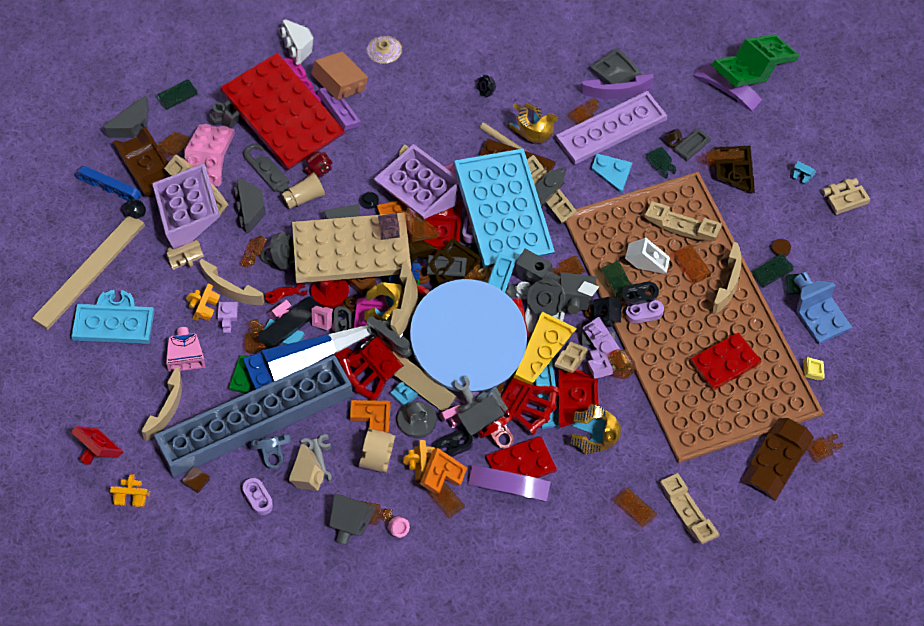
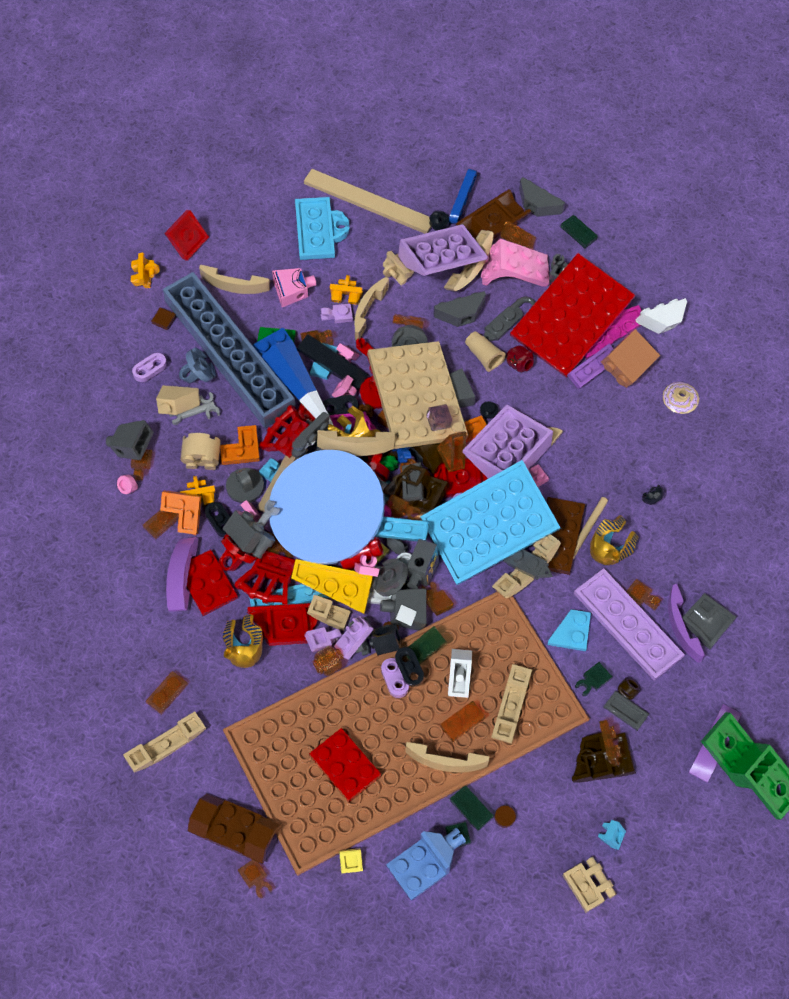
camera: 80 degrees right, 5 degrees up
(534, 314) = (367, 568): none -> bright pink tile

